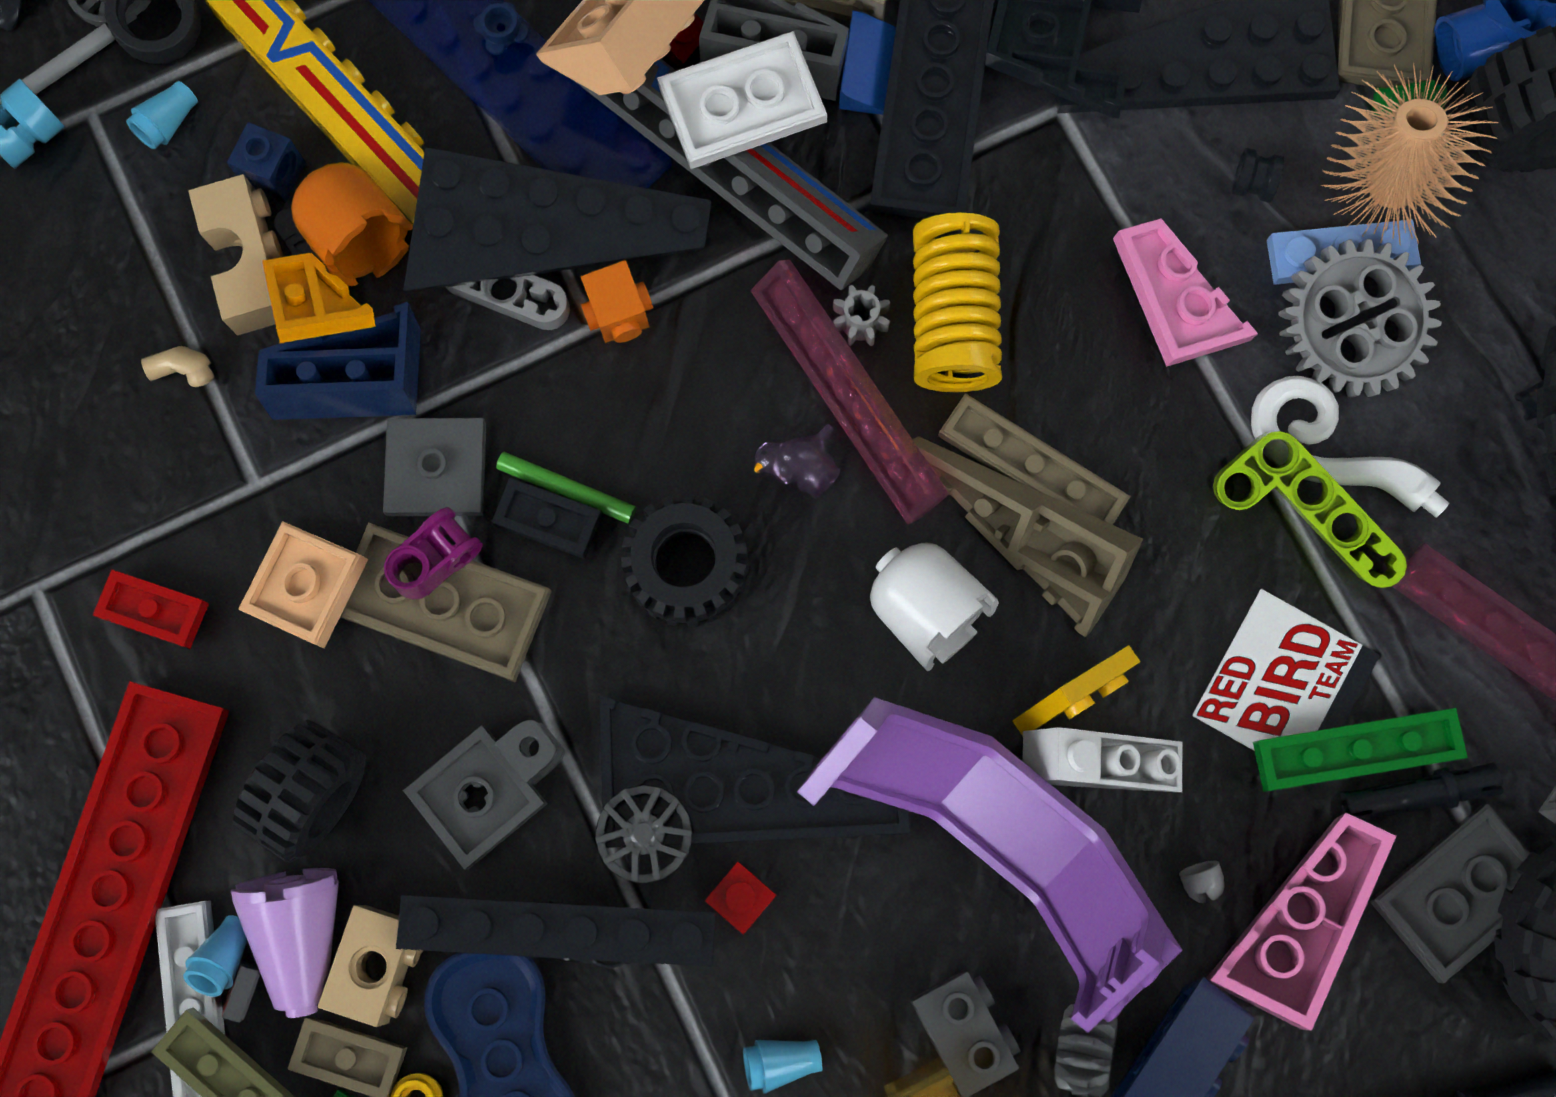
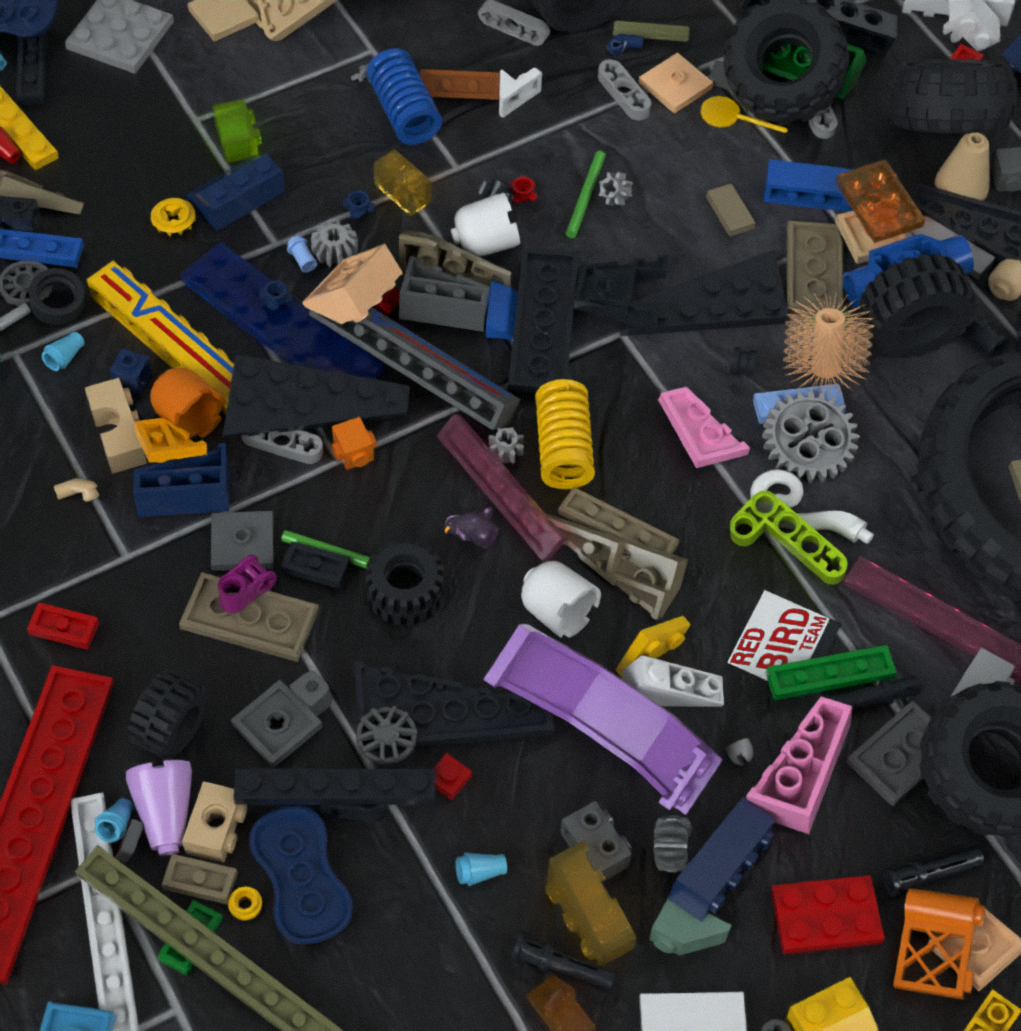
camera: 10 degrees left, 20 degrees down
(303, 584) = (161, 607): light nougat plate -> none
(742, 100) = (427, 324): white tile -> none

